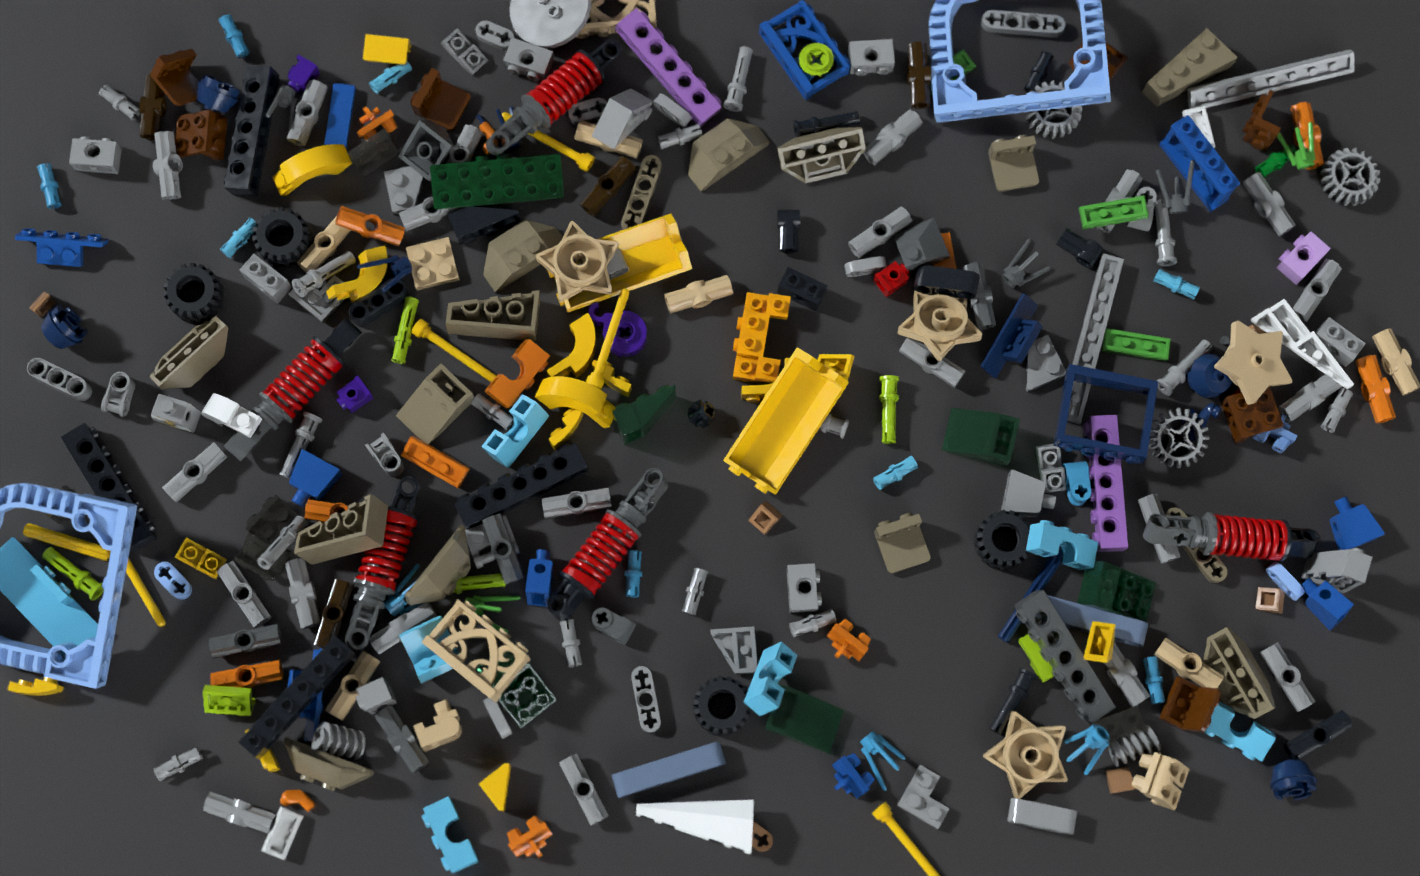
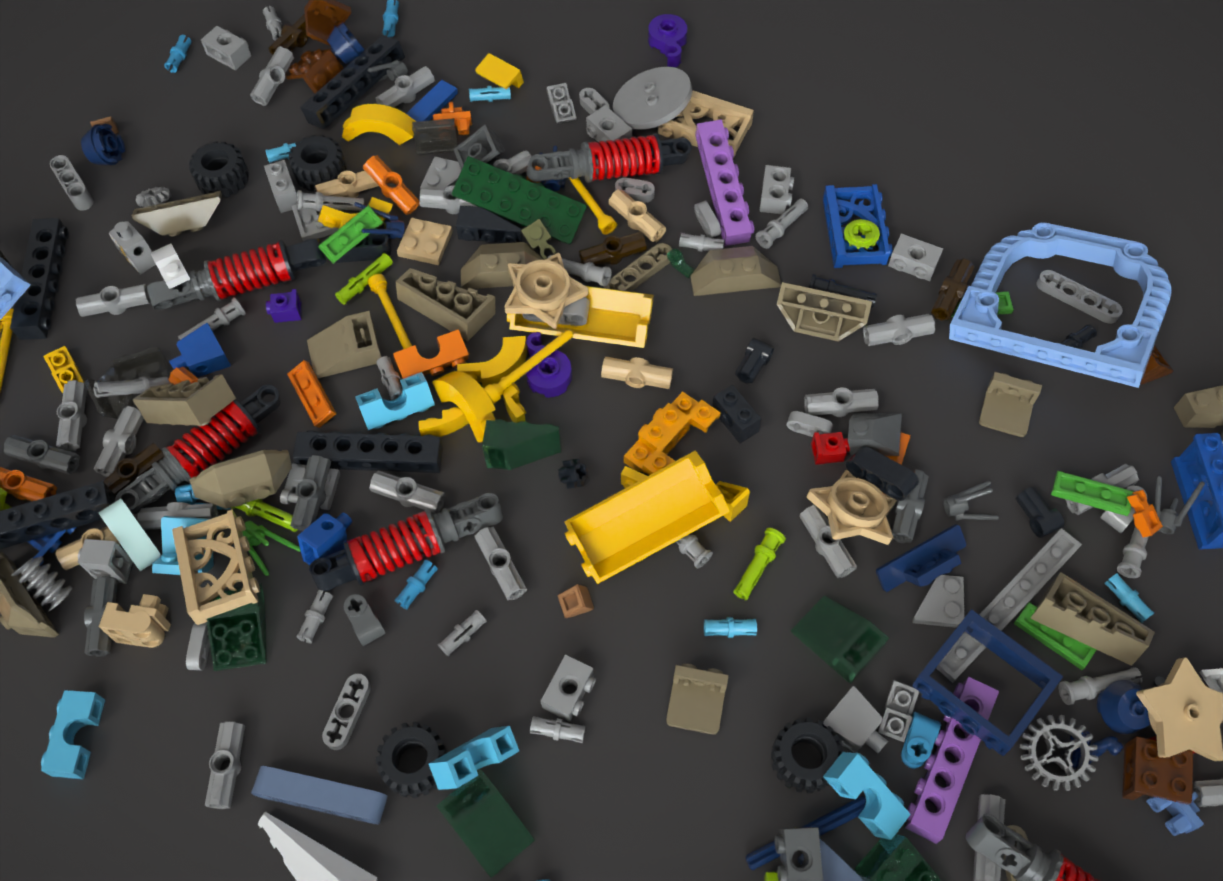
camera: 35 degrees right, 15 degrees down
(60, 248) = (149, 97): blue bracket -> none
(118, 395) = (107, 213): light grey piece -> none
(150, 360) = (153, 196): none -> light grey gear
(169, 584) = (24, 376): light blue beam -> none
(301, 74) = (421, 59): dark purple brick -> none
(372, 298) = (350, 234): none -> bright green tile
(381, 664) = (130, 534): none -> light aqua beam
(383, 453) = (274, 366): light grey piece -> none
(439, 101) = (514, 125): reddish brown bracket -> none
(497, 786) = (149, 712): yellow slope -> none
(532, 840) = (138, 786): orange hips -> none
(535, 208) = (537, 237): none -> olive plate
(600, 221) = (588, 271): none -> light grey pin
(621, 117) = (656, 196): light grey wedge -> none
(670, 166) = (678, 262): none -> clear green arm
(677, 512) = (505, 575): none -> light grey piece
(710, 48) = (775, 189): none -> light grey brick
(738, 648) = (467, 711): light grey wing -> none
(847, 643) = (578, 770): orange hips -> none
(1065, 120) = (1071, 386): light grey gear -> none
(1156, 320) = (1092, 620): none -> dark tan wedge
(1162, 211) = (1145, 516): none -> orange plate

